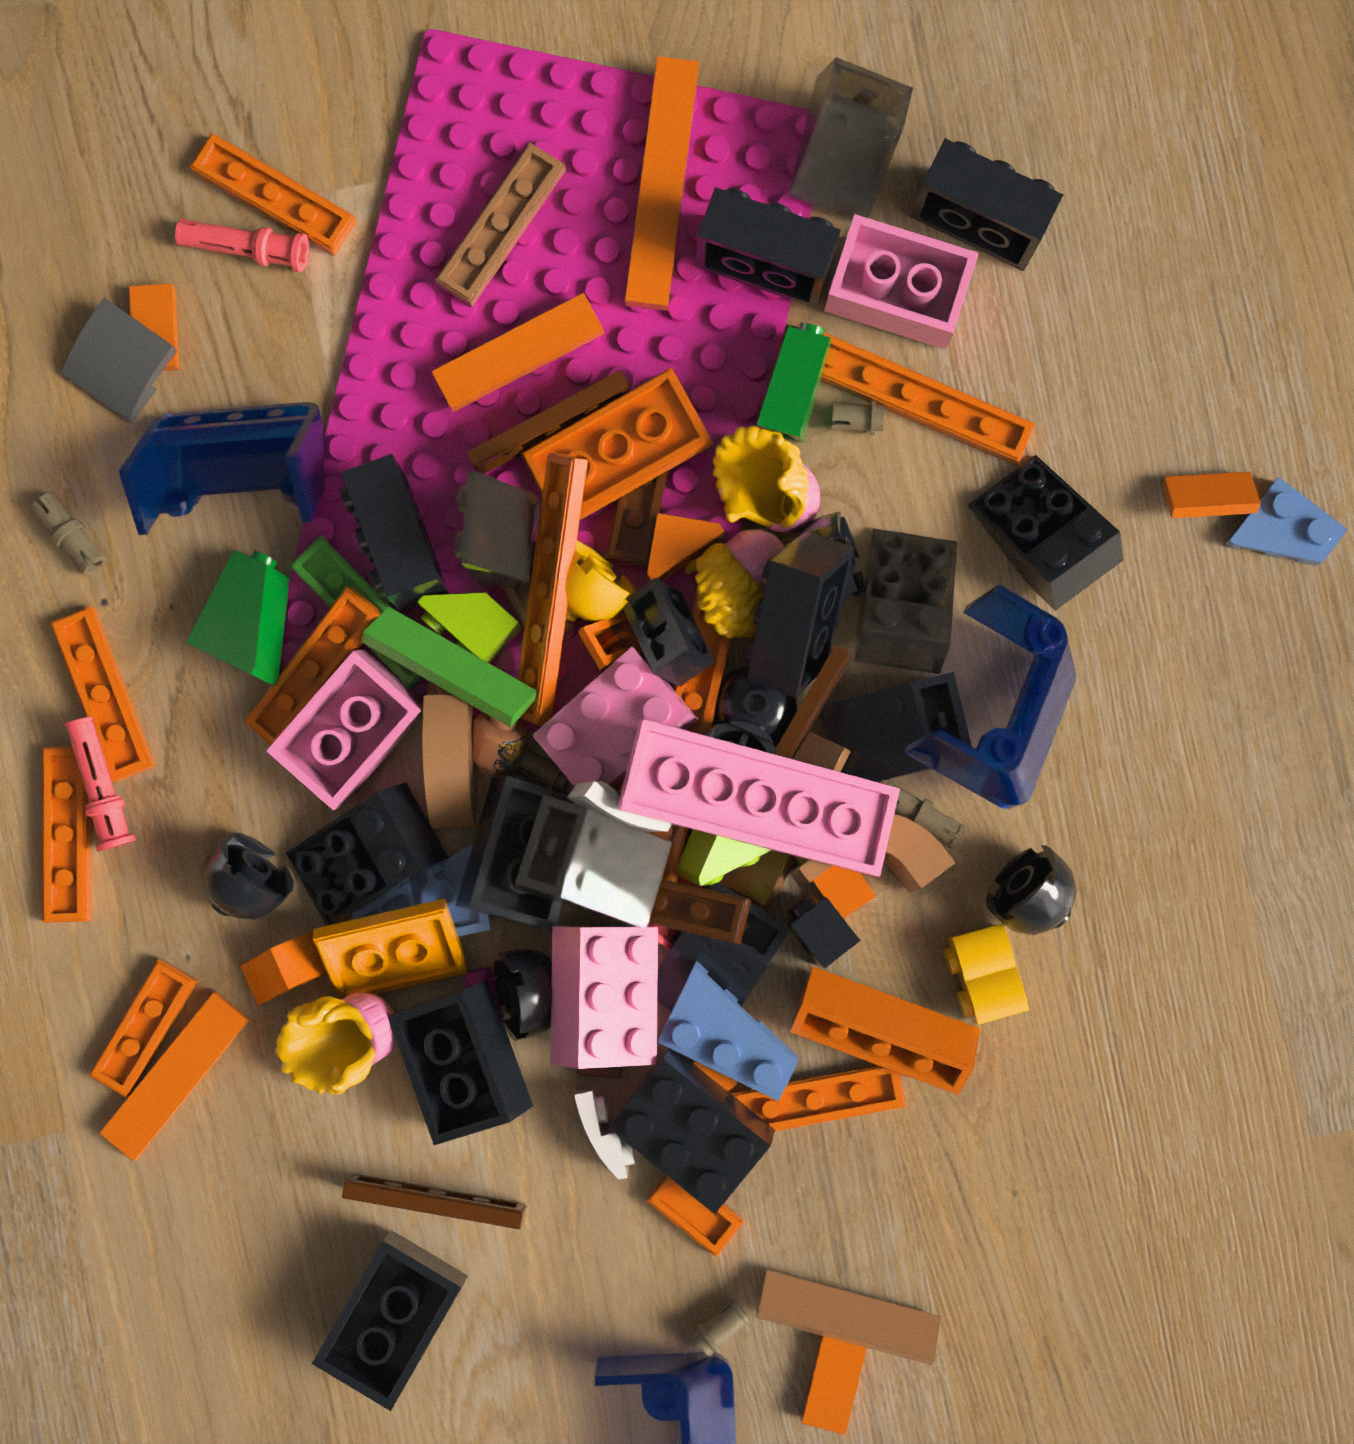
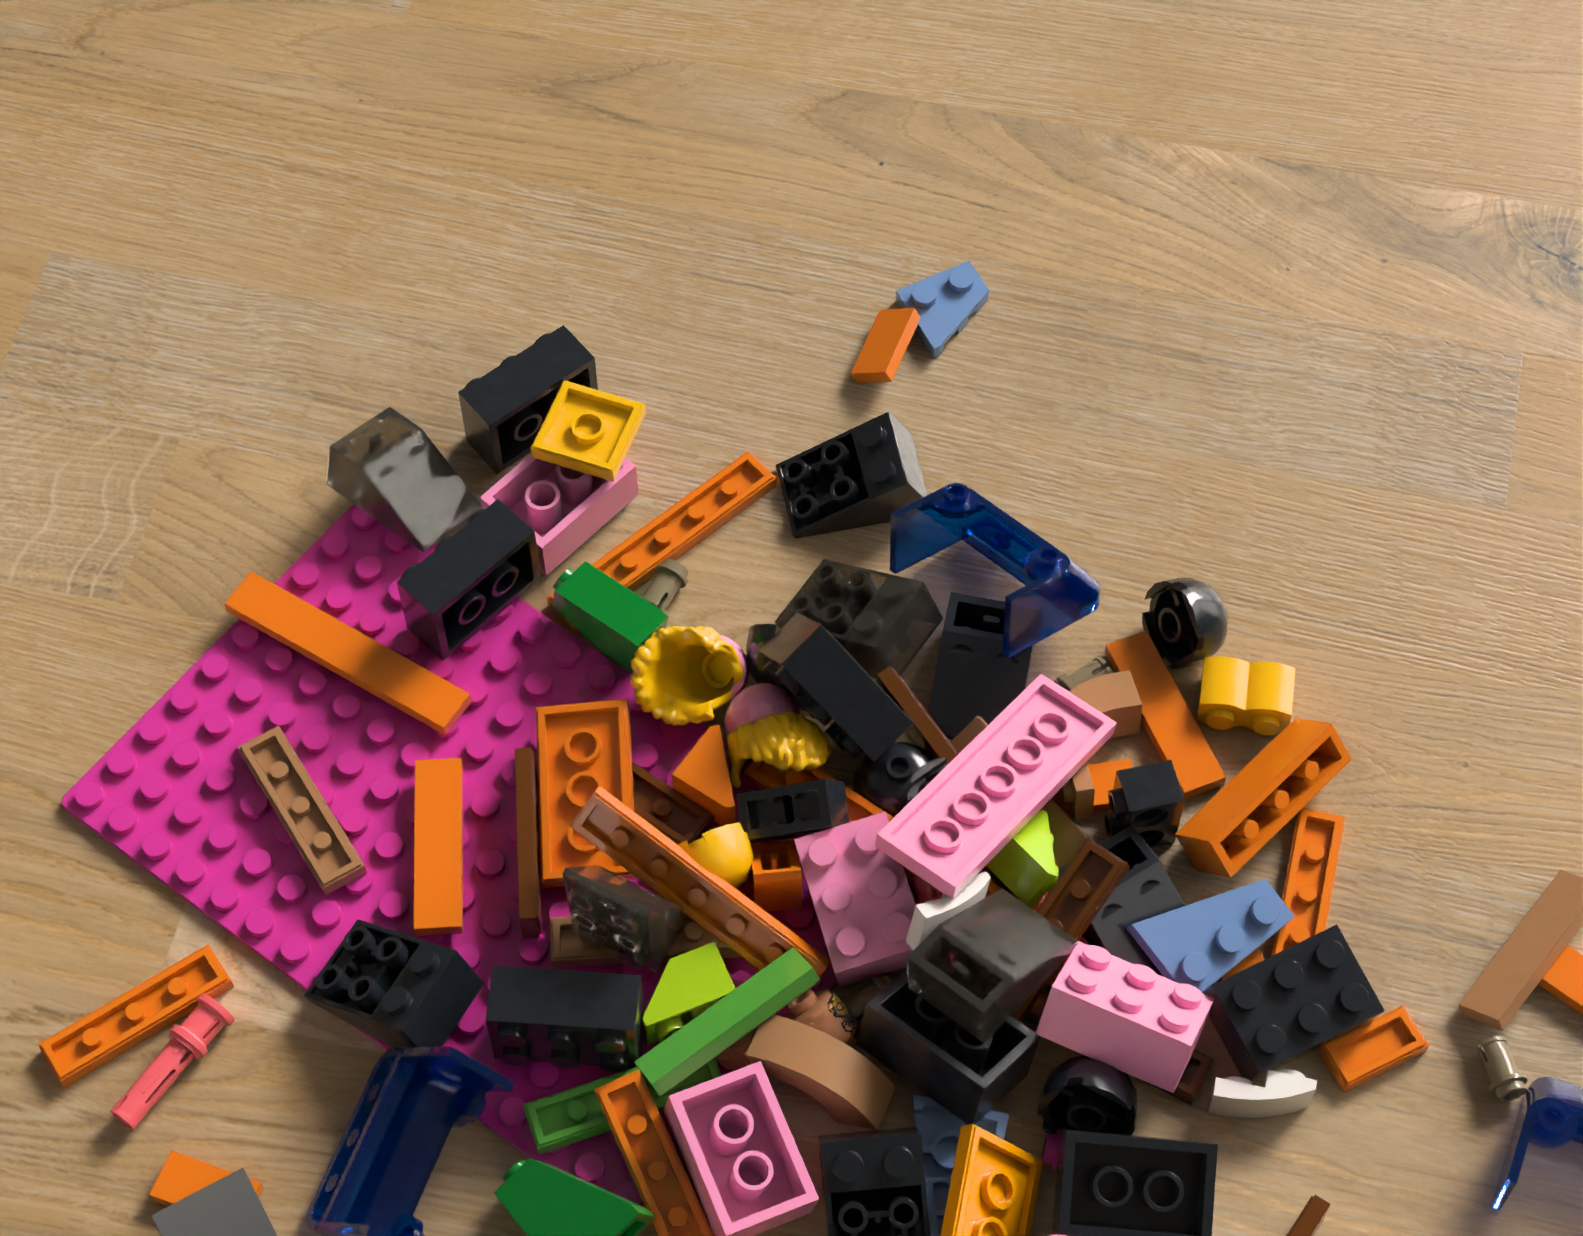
camera: 65 degrees left, 25 degrees down
(371, 384) = (395, 986): none -> black slope
(938, 908) = (1167, 715): none -> orange tile
(963, 273) = (588, 430): none -> yellow plate

